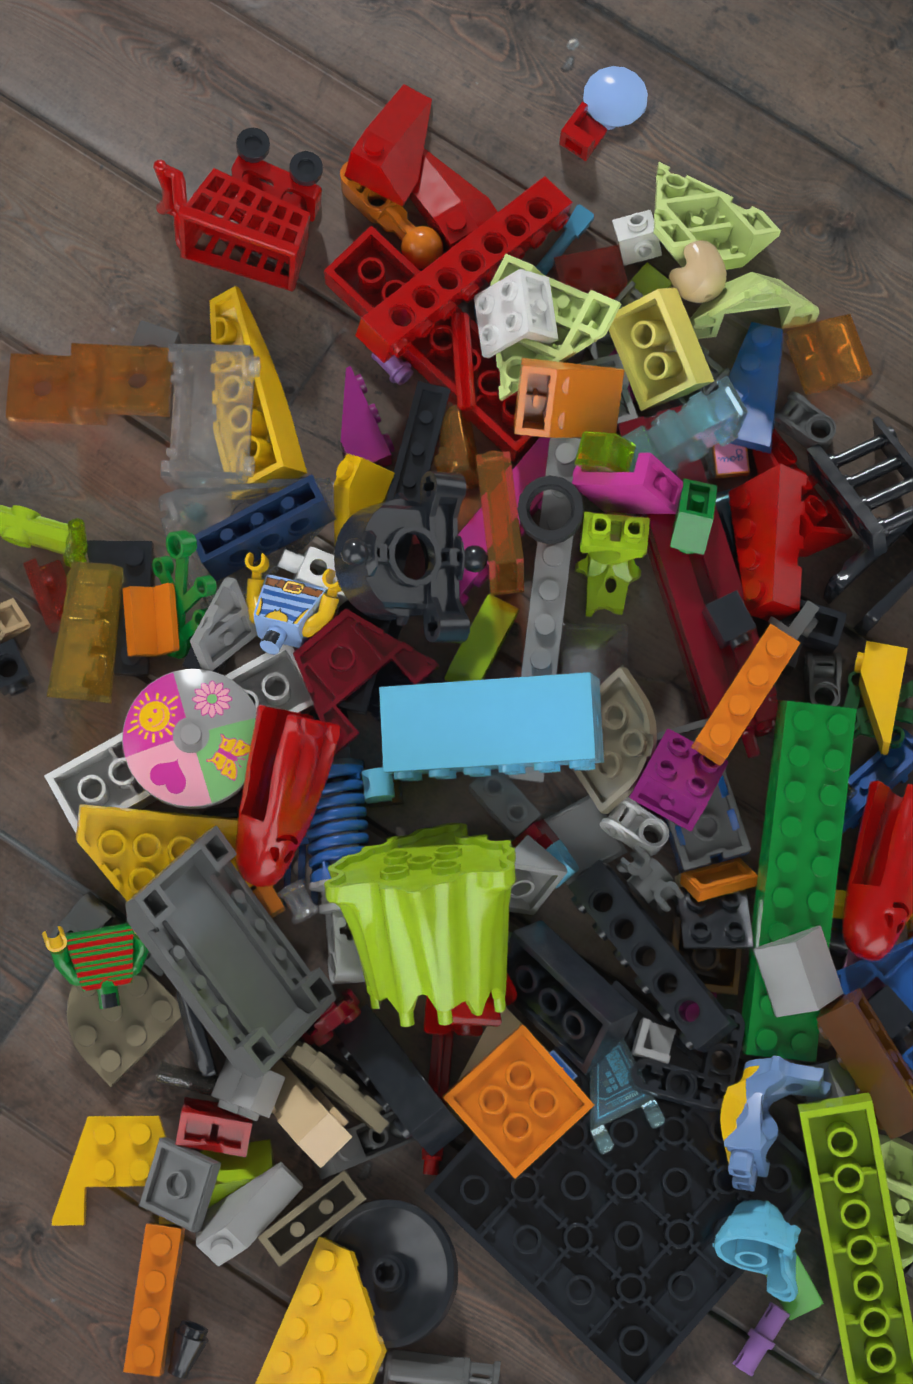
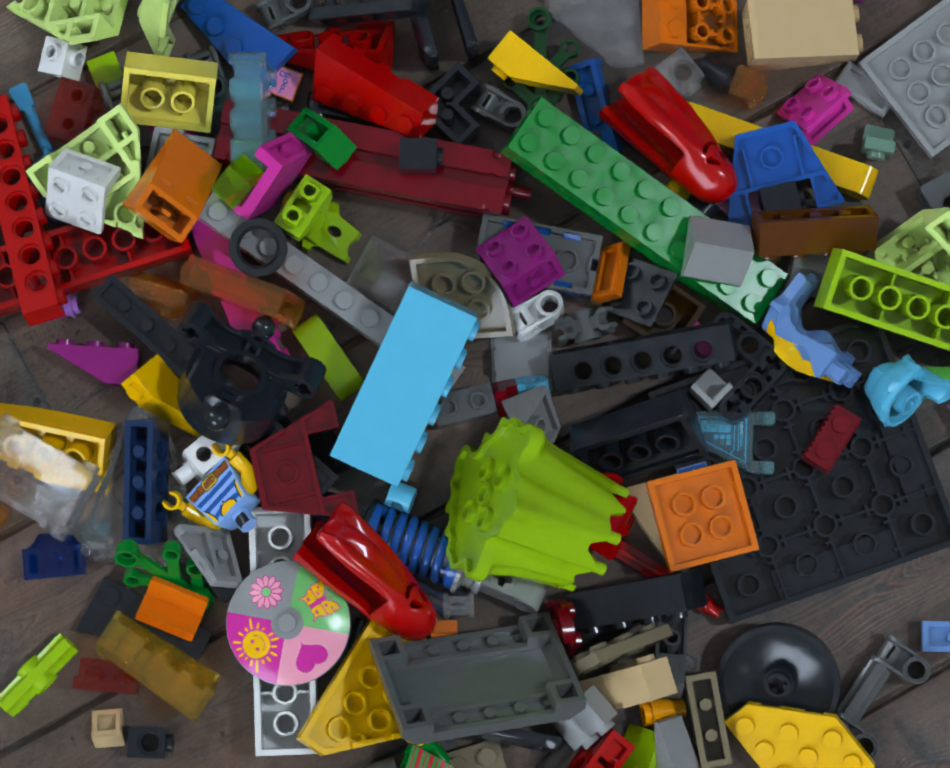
camera: 55 degrees left, 5 degrees up
(77, 543) = (77, 638): clear neon green arm -> none
(140, 481) = (53, 558): none -> clear blue slope
(300, 1165) = (660, 709): none -> light orange cone
(463, 361) = (95, 251): red axle -> none
(669, 1194) = (830, 438): none -> dark red brick
(702, 276) = (128, 23): tan helmet -> none
(745, 695) = (485, 175): orange arch -> none
(802, 624) = (449, 100): dark grey bracket -> none

